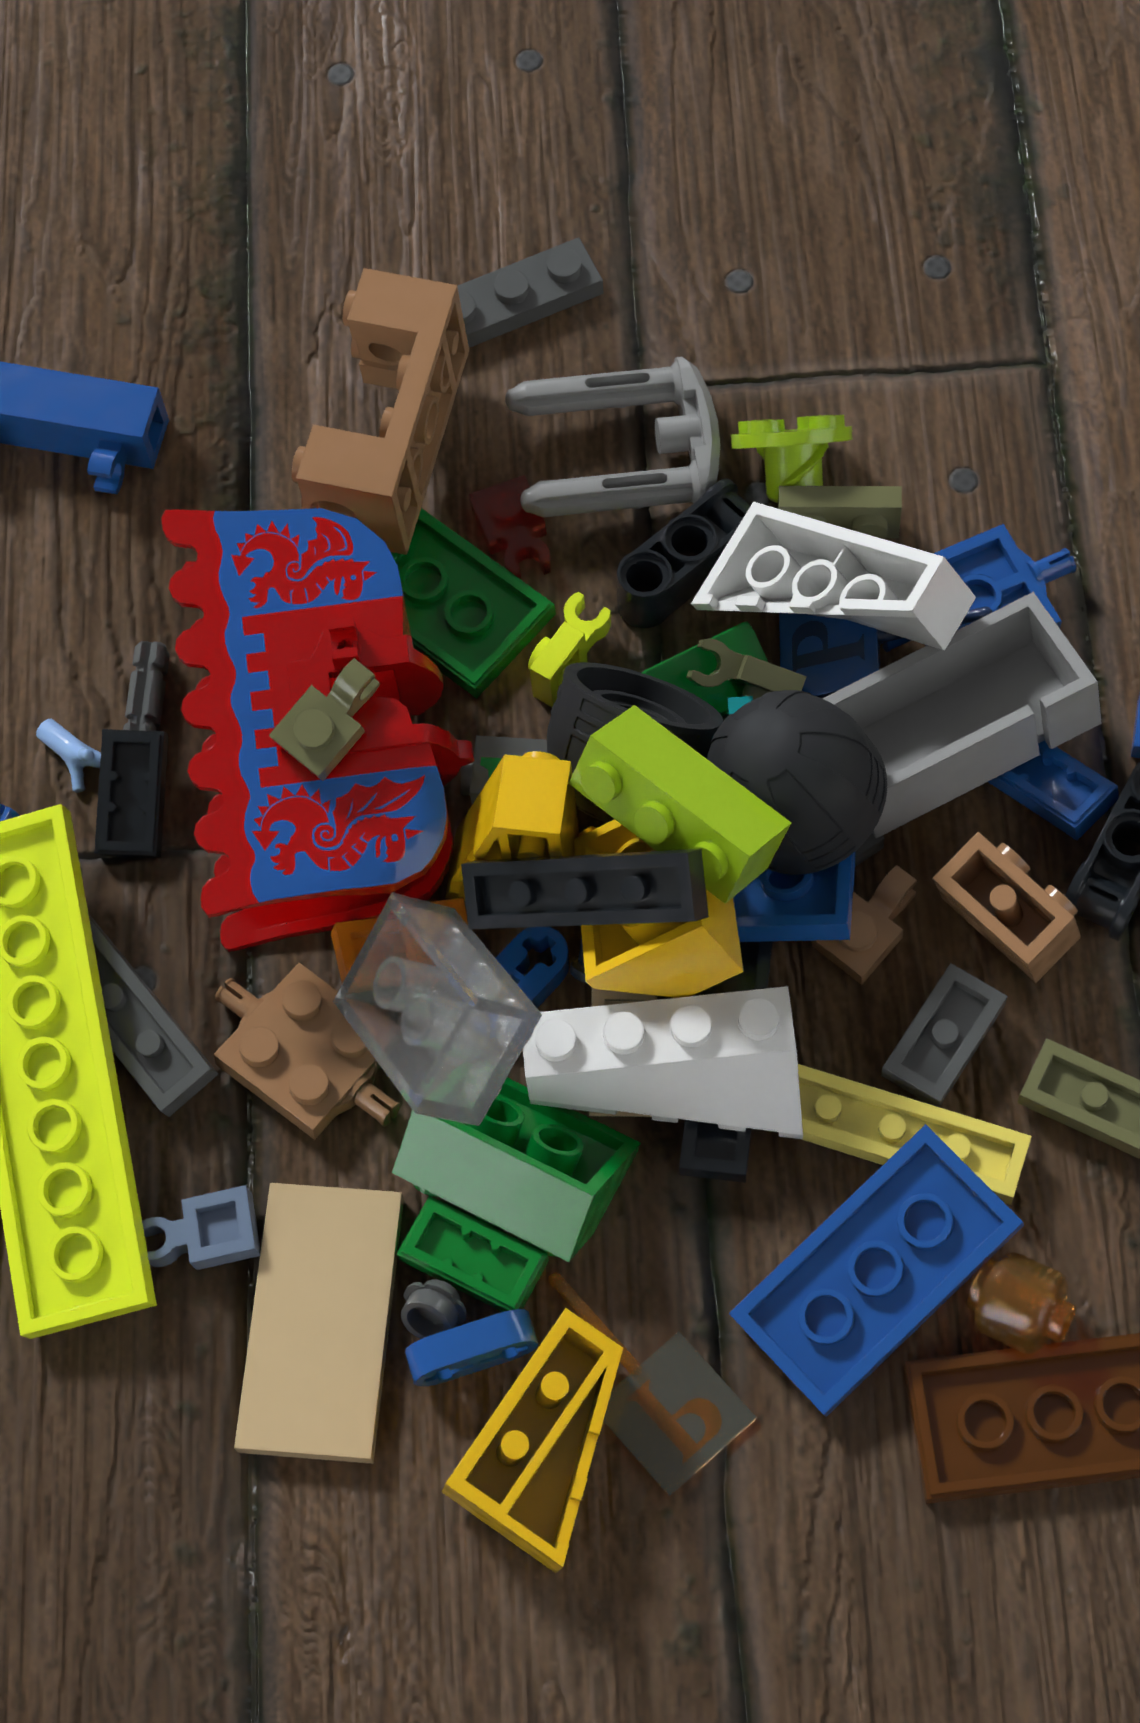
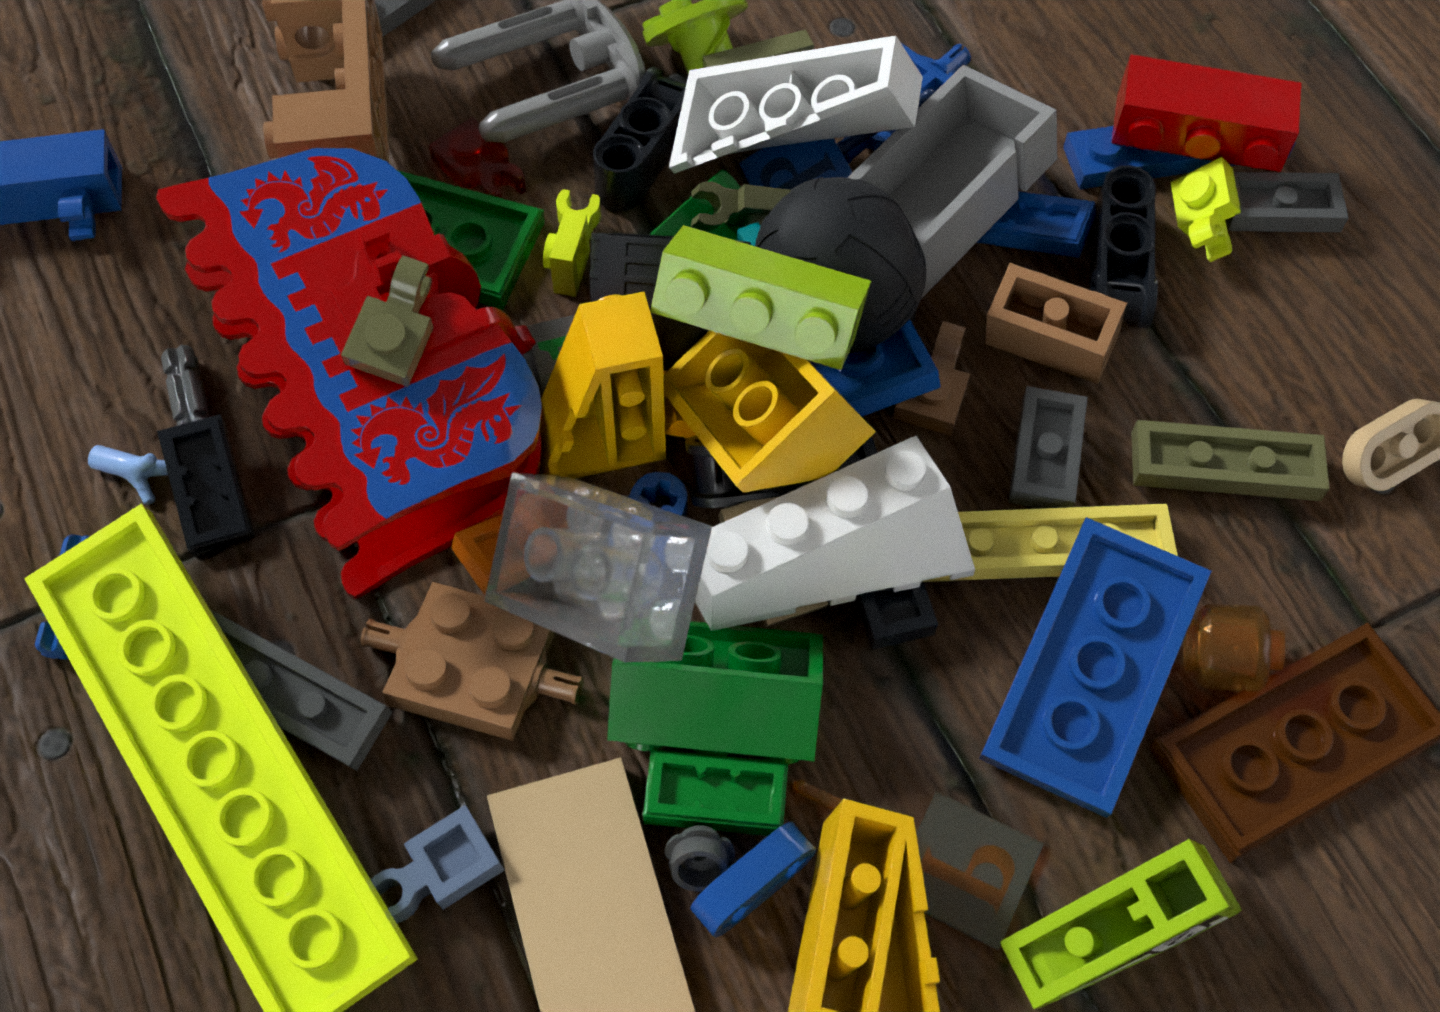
camera: 30 degrees left, 5 degrees down
(586, 889) = (703, 402): black plate -> none
(787, 1516) = (1121, 924): none -> lime slope

